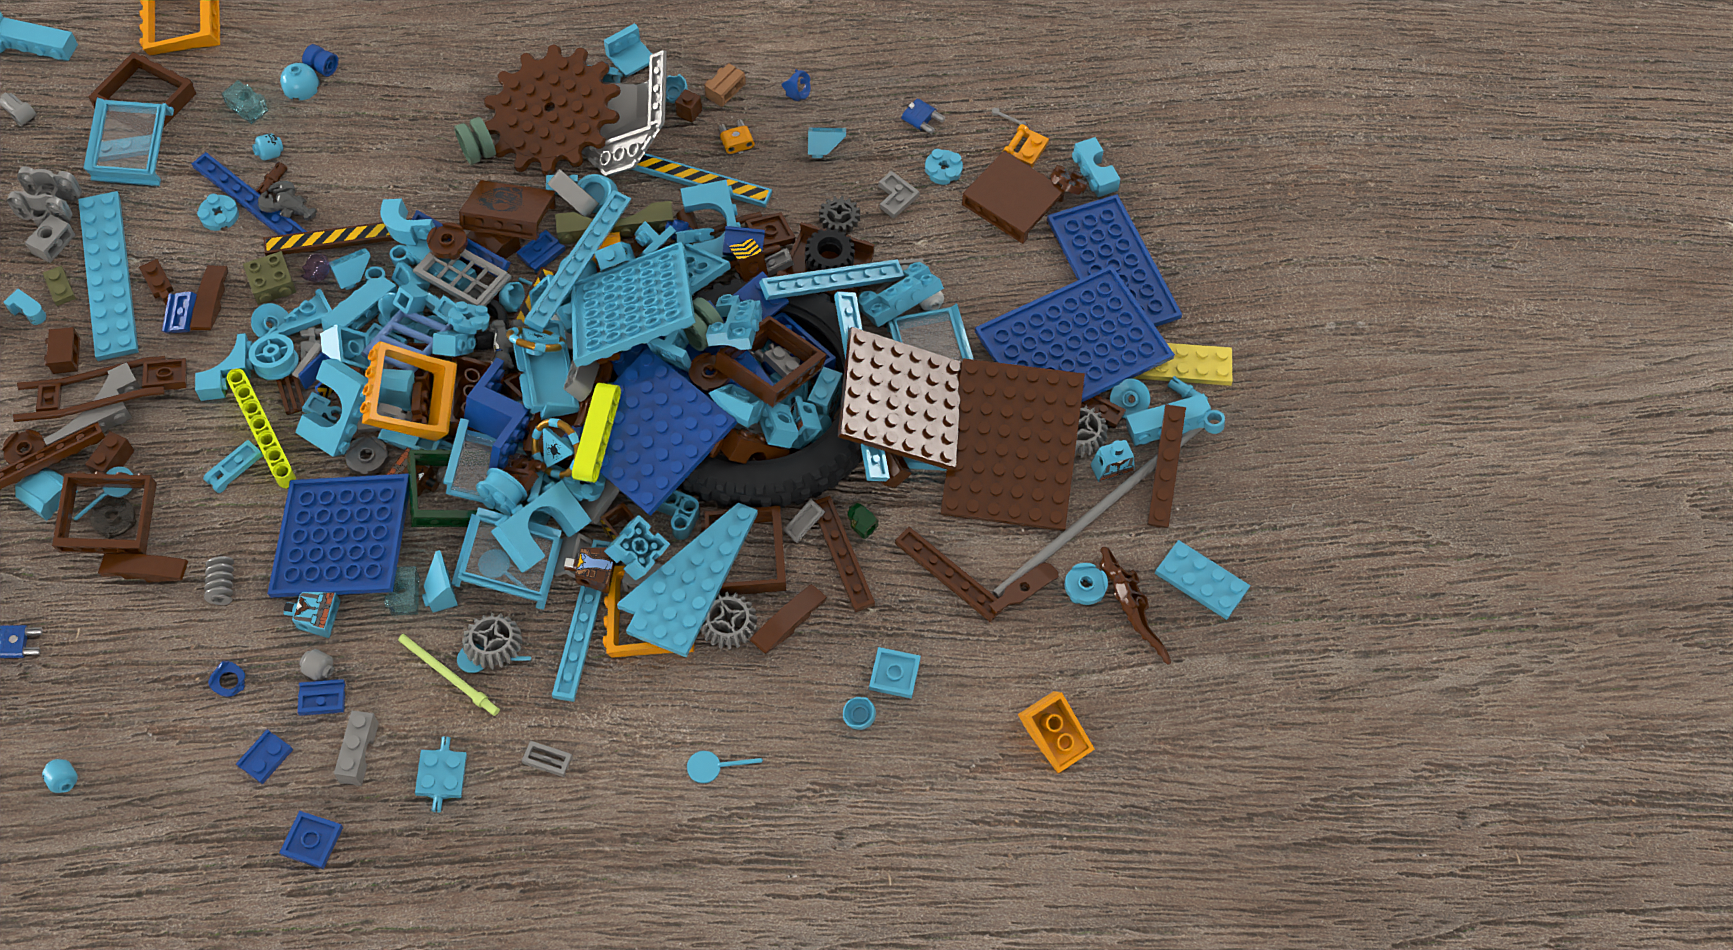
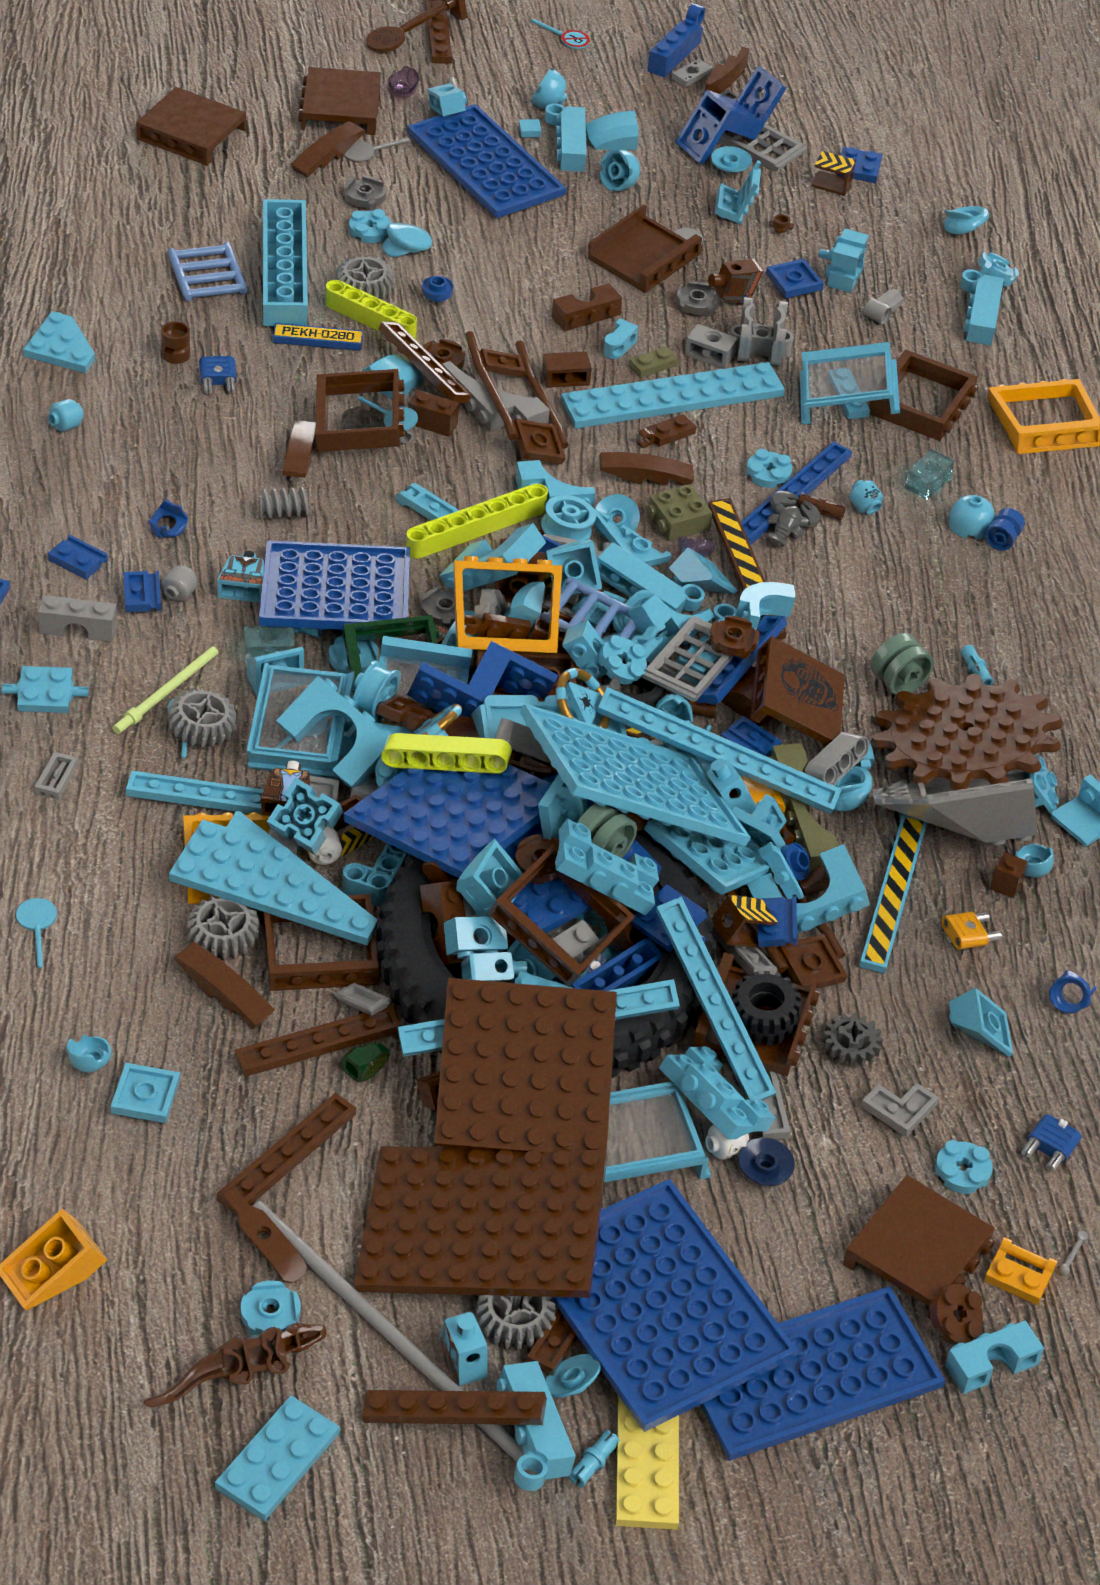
camera: 85 degrees right, 15 degrees down
(179, 312) = (630, 444): blue plate -> none
(419, 538) = (367, 652): none -> medium azure plate
(468, 100) = (971, 657): none -> medium azure pin
(724, 84) = (1055, 914): medium nougat brick -> none
(950, 269) = (767, 1153): none -> dark blue dish

